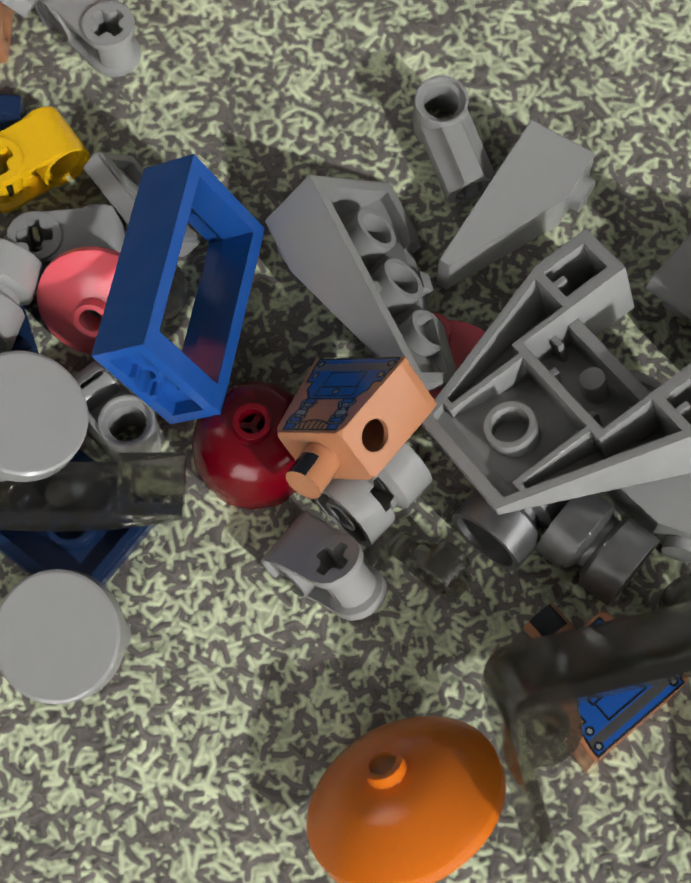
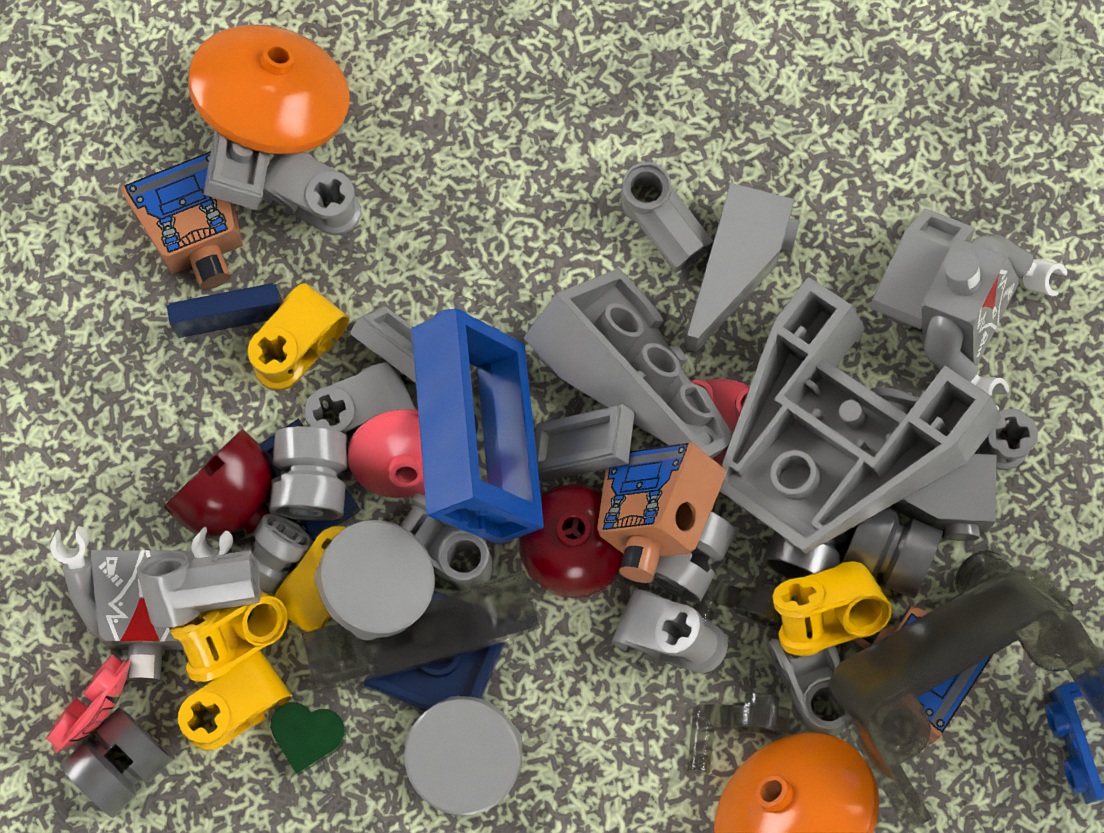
camera: 10 degrees left, 5 degrees up
(293, 341) = (584, 442): none -> light grey tile
(394, 683) = (756, 714): none -> clear smoke plate
(462, 649) = (807, 679): none -> light grey piece
(507, 585) = (833, 606): none -> yellow piece

